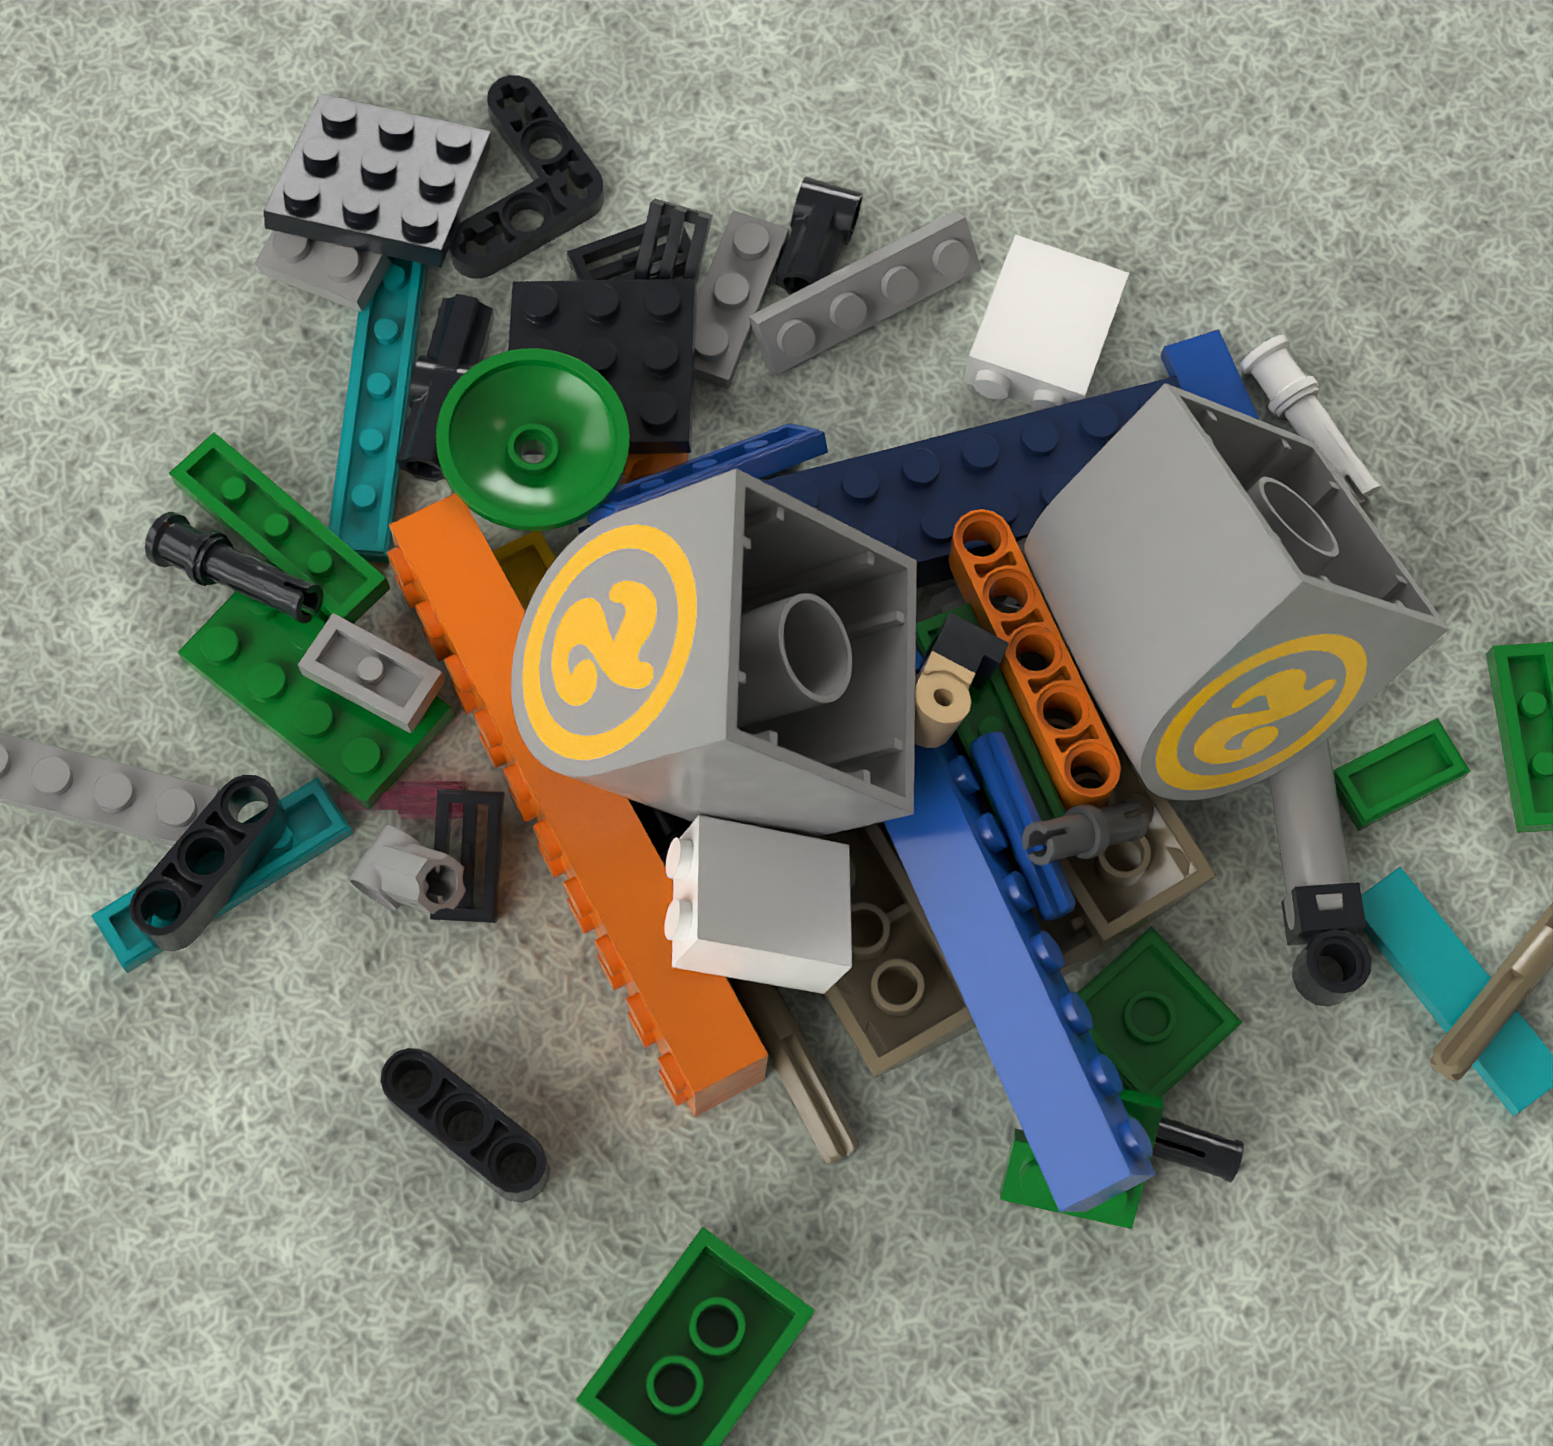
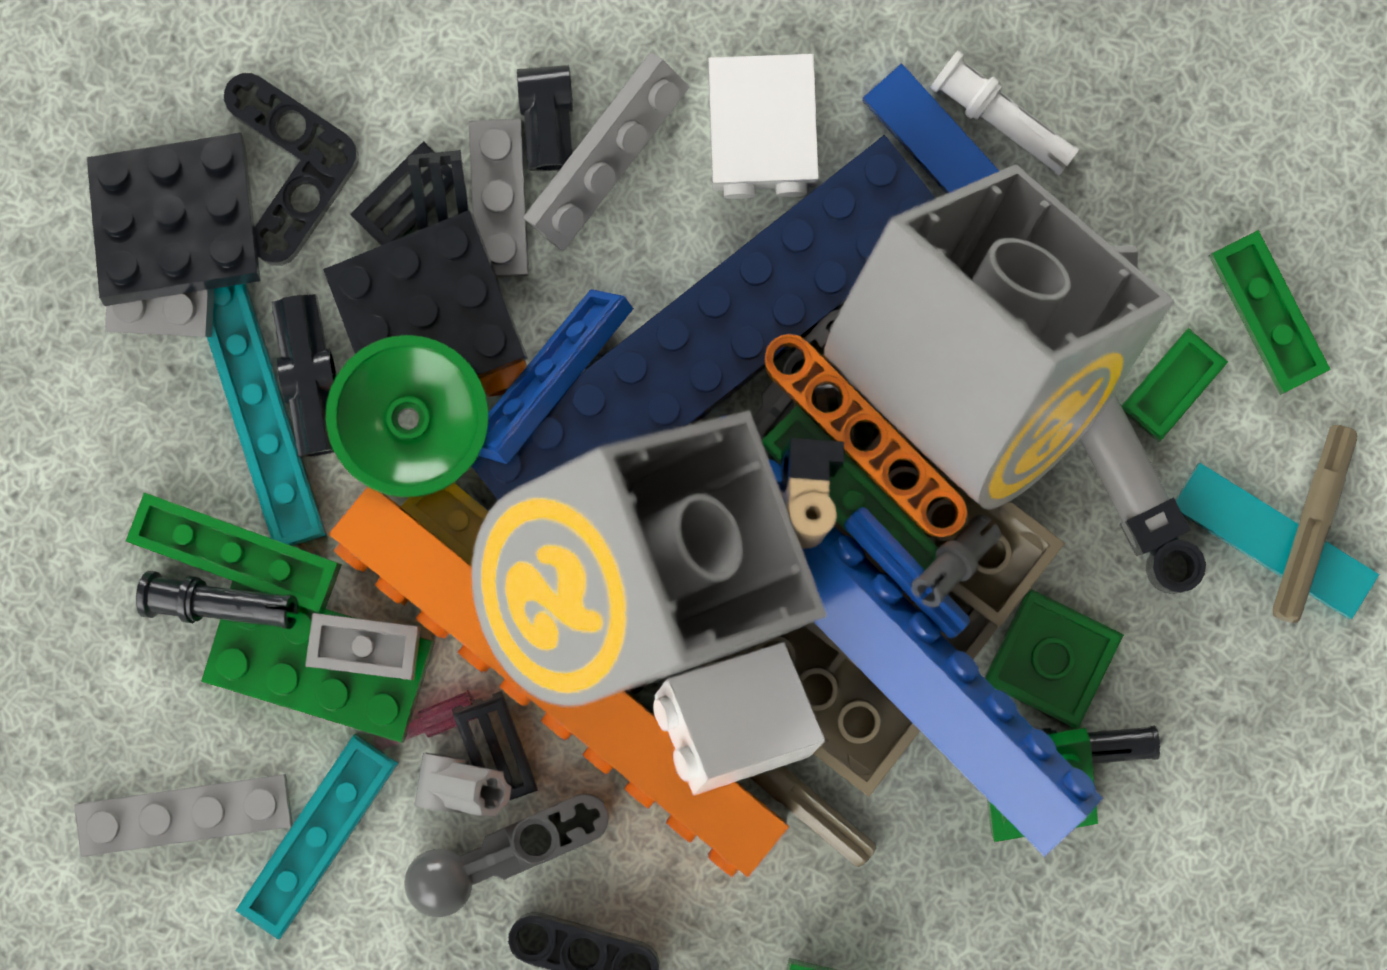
camera: 15 degrees left, 15 degrees up
(211, 831) = (290, 860): black beam -> none
(339, 973) = (442, 881): none -> dark grey beam

